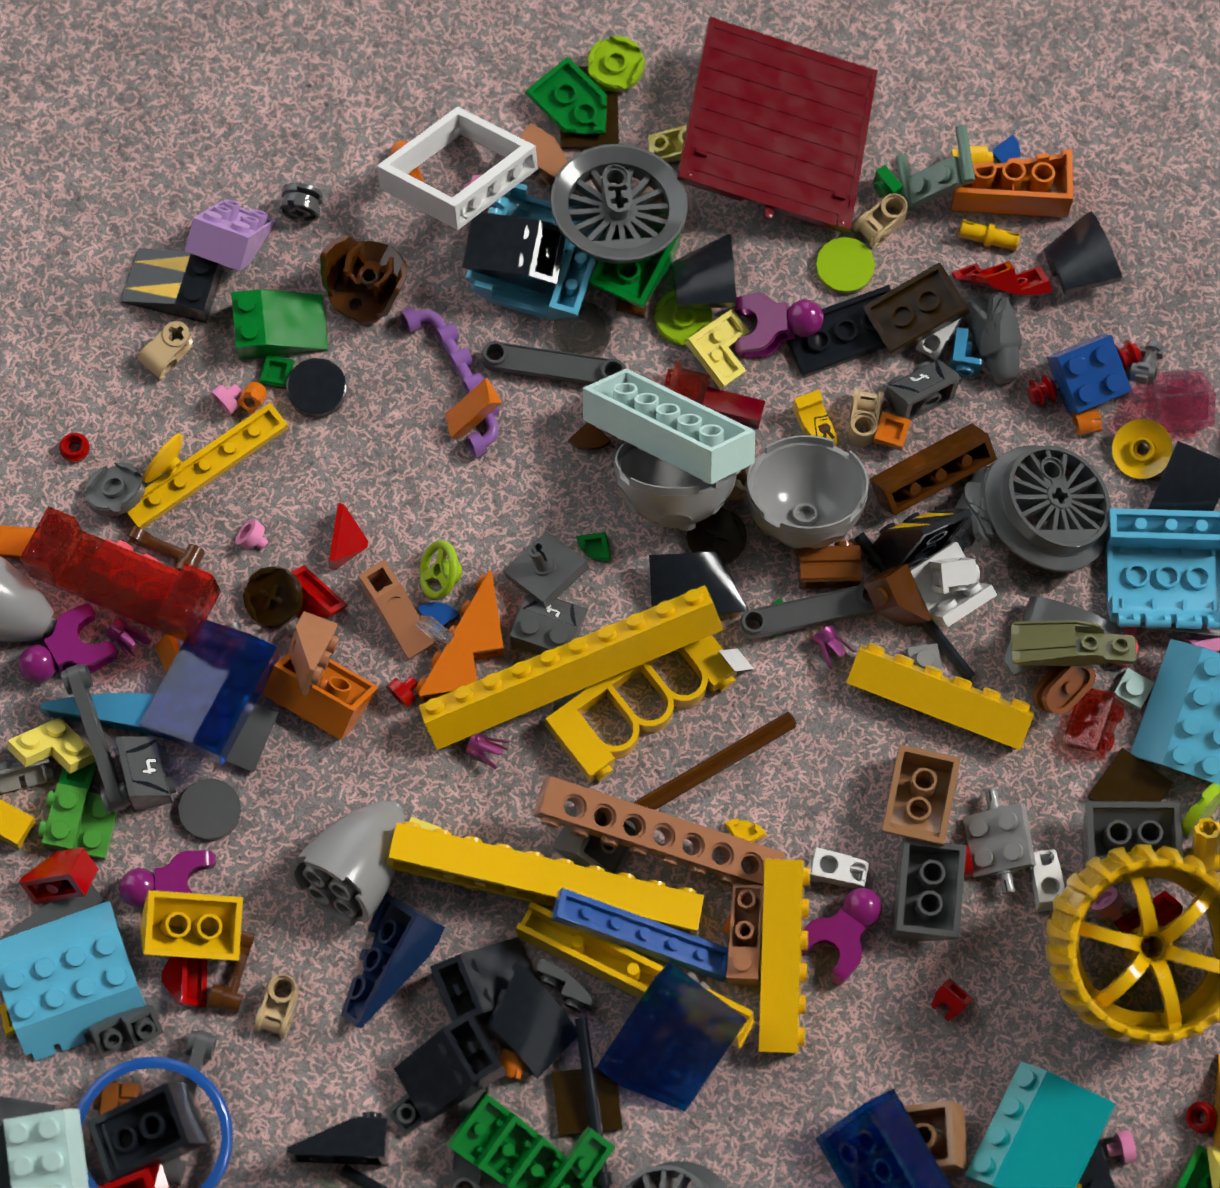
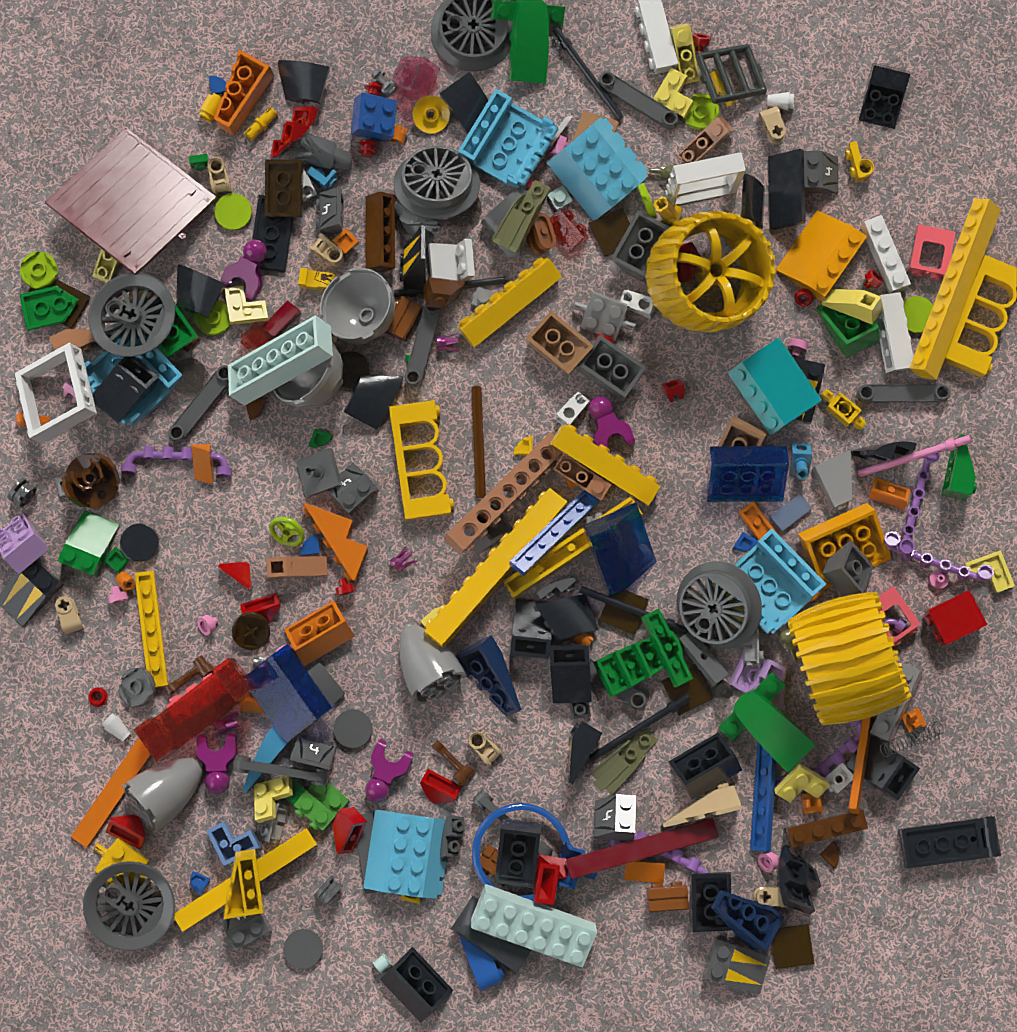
camera: 60 degrees left, 10 degrees up
(45, 491) = (116, 727): none -> white cone
(165, 460) = (139, 649): yellow dish -> none
(191, 925) = (417, 772): yellow slope -> none
(312, 648) = (294, 626): nougat slope -> none
(434, 629) = (321, 552): clear tile -> none
(570, 667) = (385, 489): yellow brick -> none
(736, 659) = (428, 398): white sticker -> none
(938, 178) = (214, 132): sand green plate -> none
(953, 574) = (447, 255): white brick -> none

